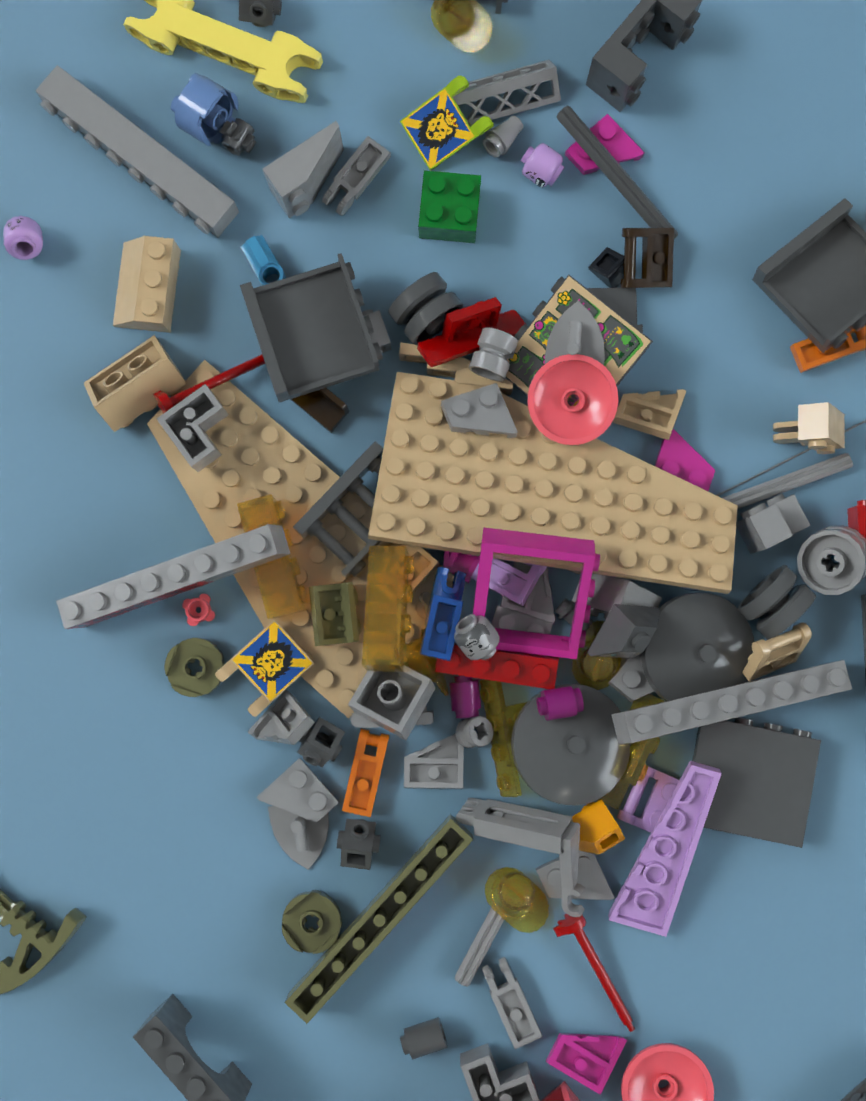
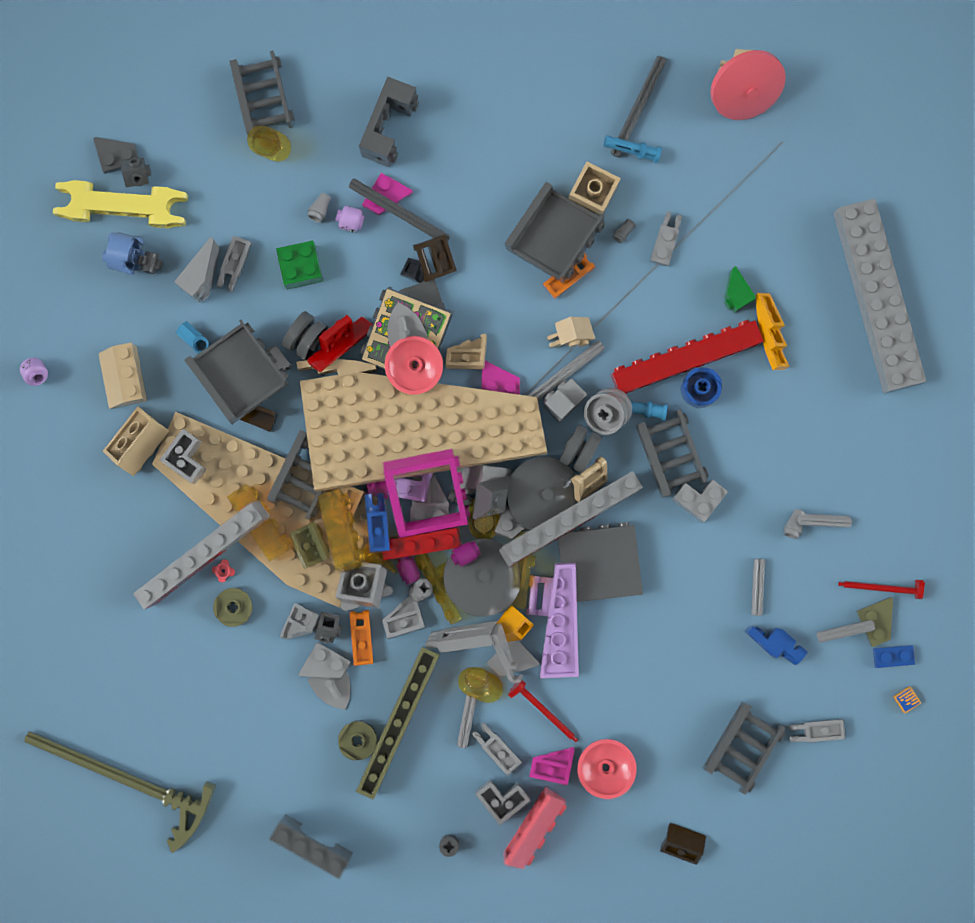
camera: 25 degrees left, 0 degrees up
(136, 151) = (88, 292): light grey brick -> none
(167, 403) = (162, 447): red piece -> none
(269, 663) = (279, 588): flag -> none
(358, 843) = (369, 678): dark grey brick -> none
(423, 1038) = (449, 788): dark grey brick -> none
(440, 126) = (277, 215): flag -> none
(476, 637) = (401, 530): light grey head -> none
(479, 412) = (359, 390): light grey wing -> none
(494, 351) = (356, 351): light grey wheel -> none
(506, 83) = (306, 175): light grey fence -> none

